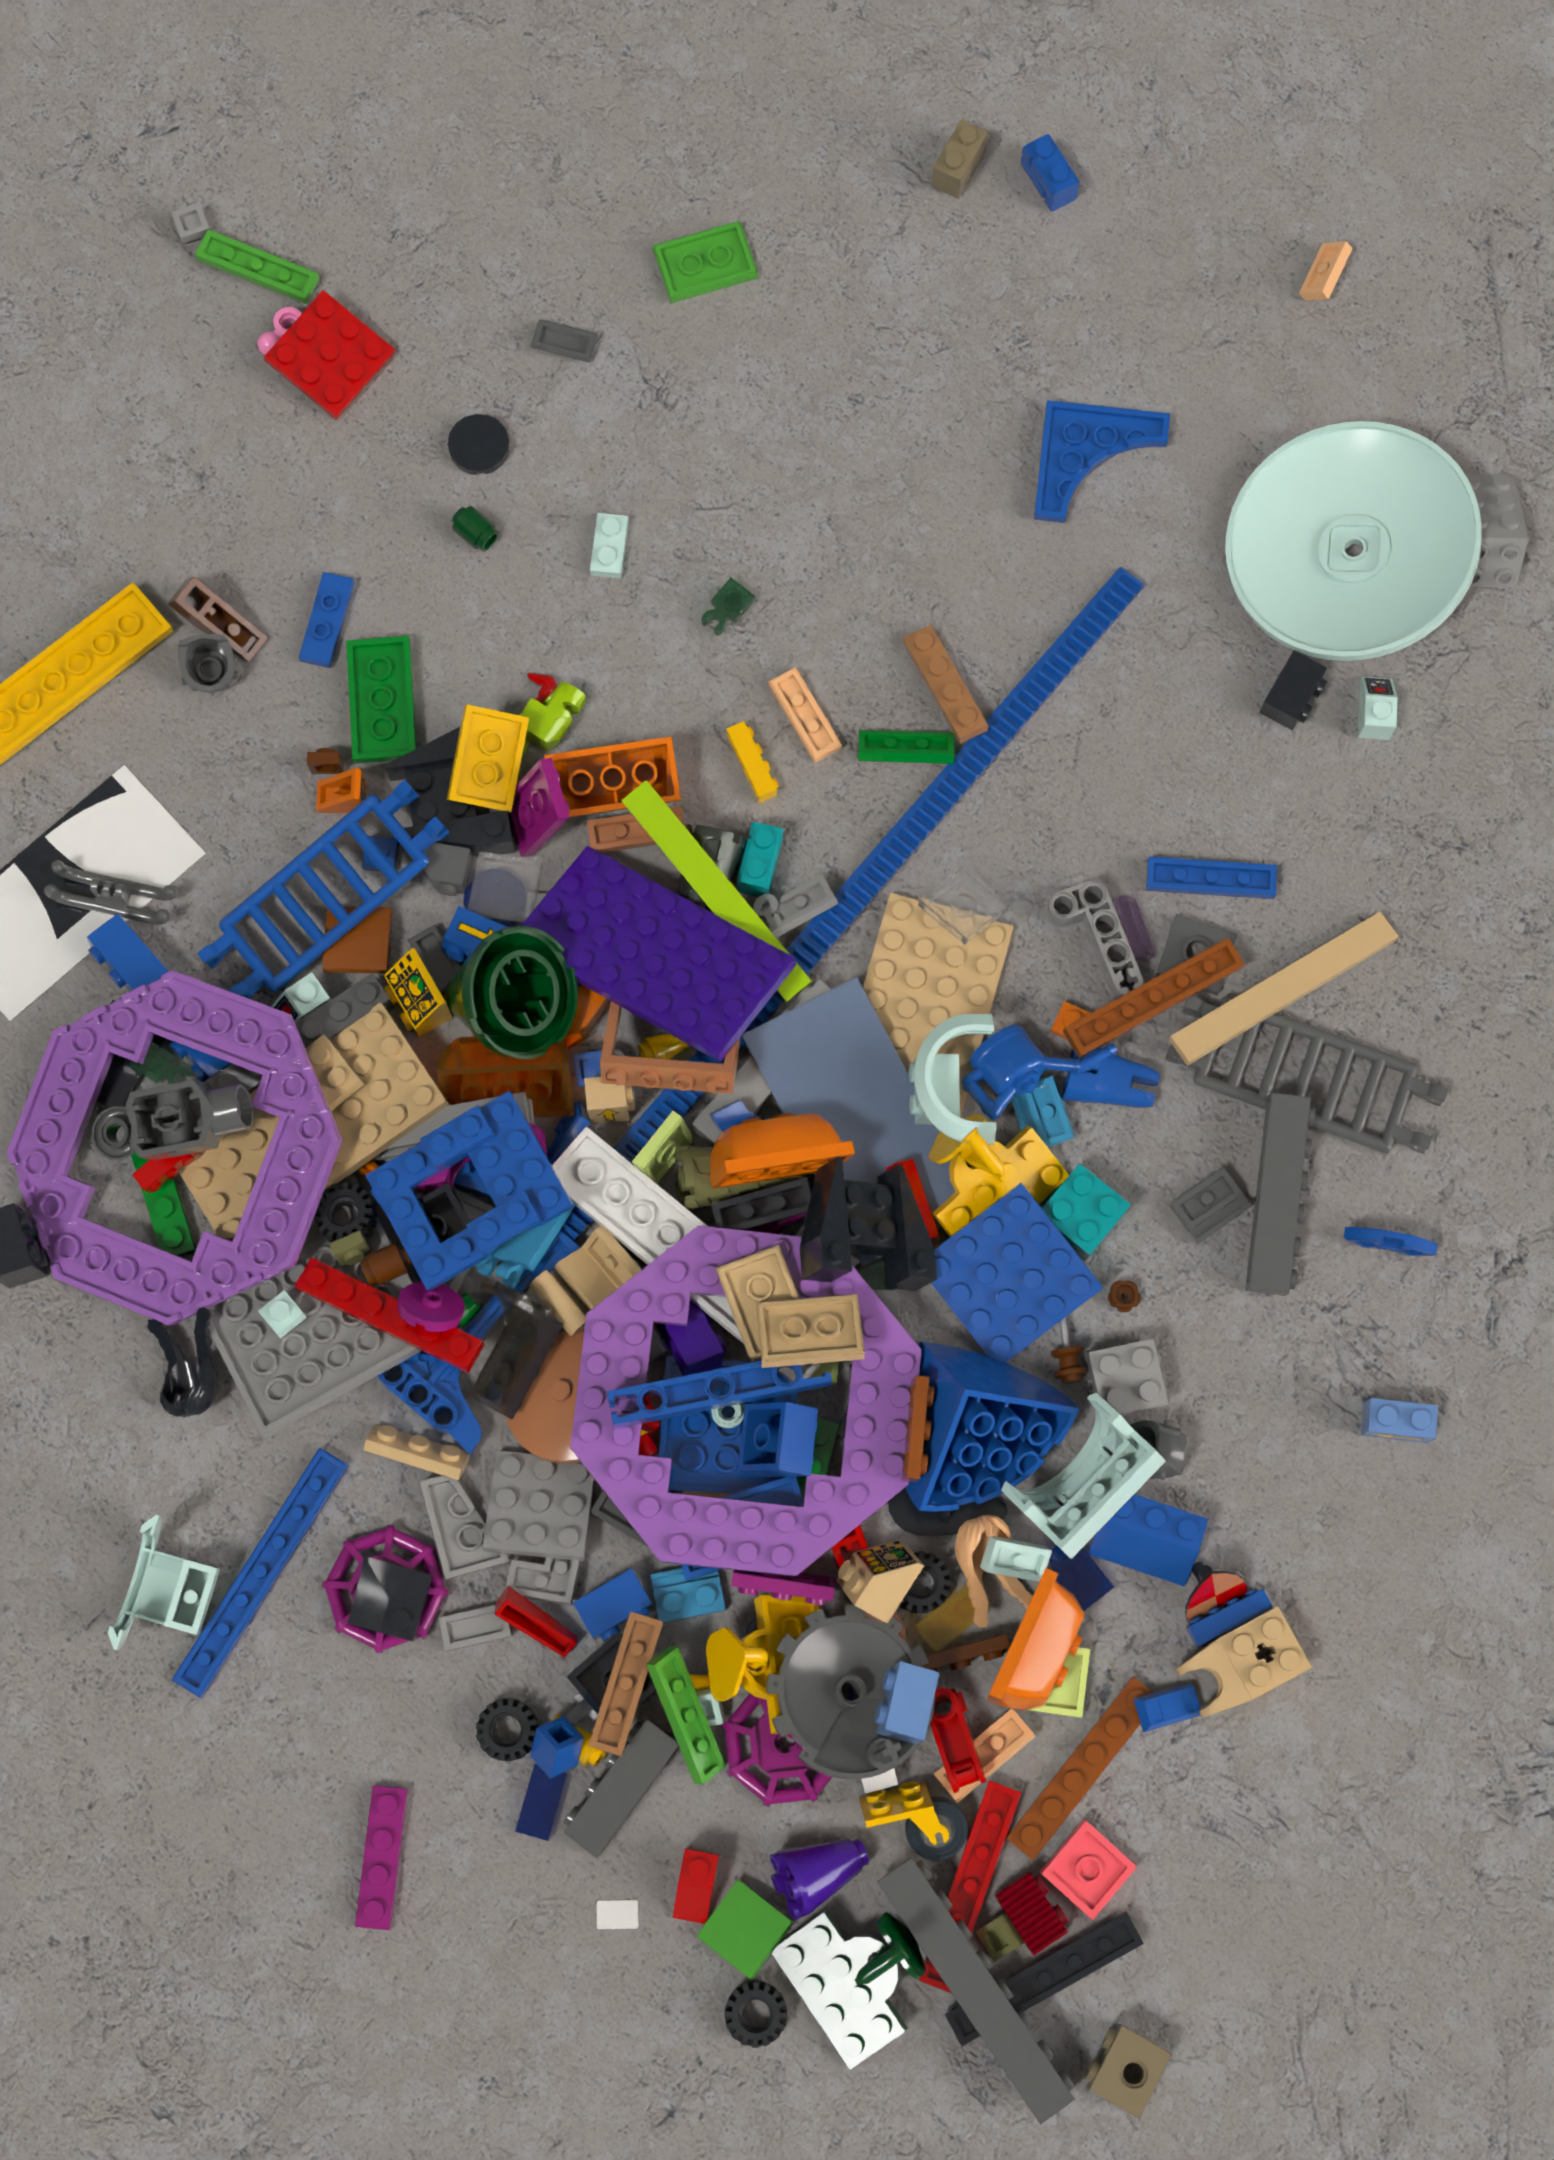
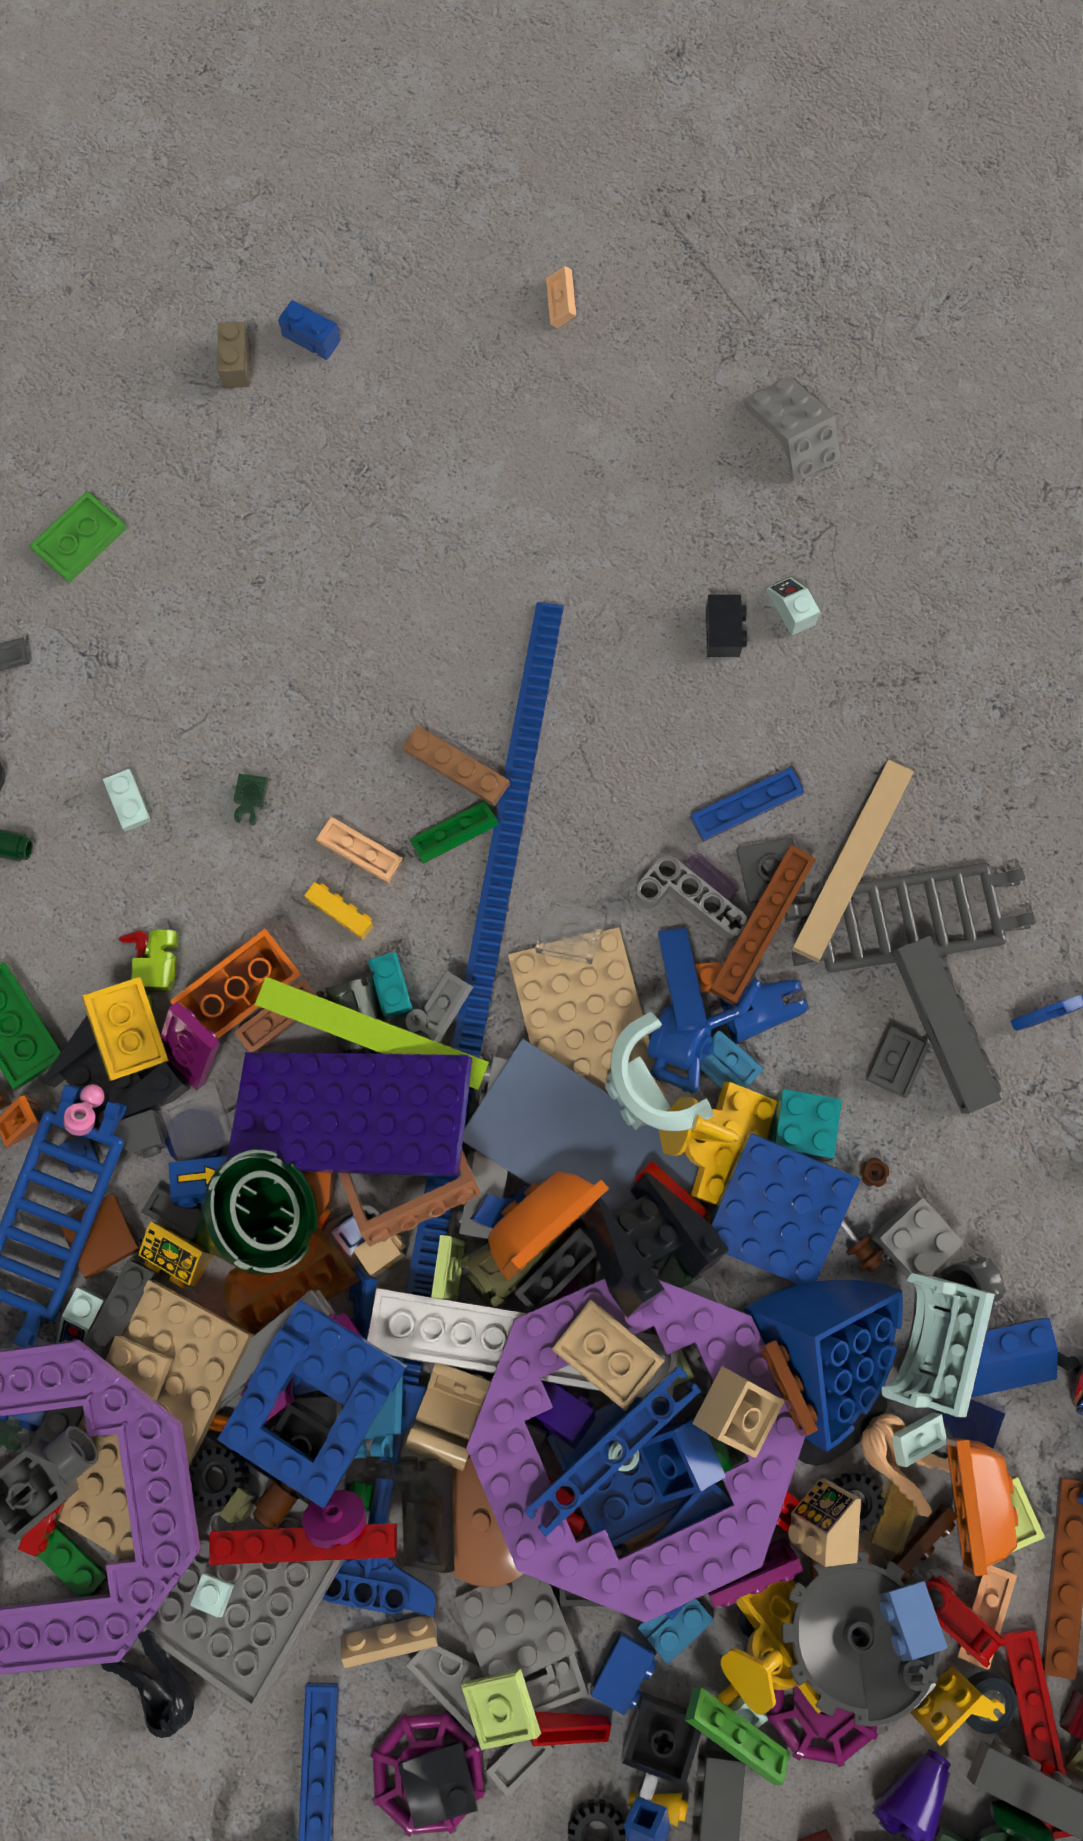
camera: 30 degrees left, 0 degrees up
(421, 806) = (90, 1097): none -> bright pink plate
(484, 1565) = (501, 1709): none -> yellowish green tile
(625, 1684) = (676, 1745): medium nougat plate -> none
(661, 1046) = (395, 1188): yellow cone -> none
(810, 1330) = (659, 1359): tan tile -> none
(856, 1423) = (738, 1412): none -> tan slope
(1044, 1007) = (682, 979): none -> blue tile
(1082, 438) = (450, 521): blue plate -> none
(1345, 489) = (699, 440): light aqua dish -> none

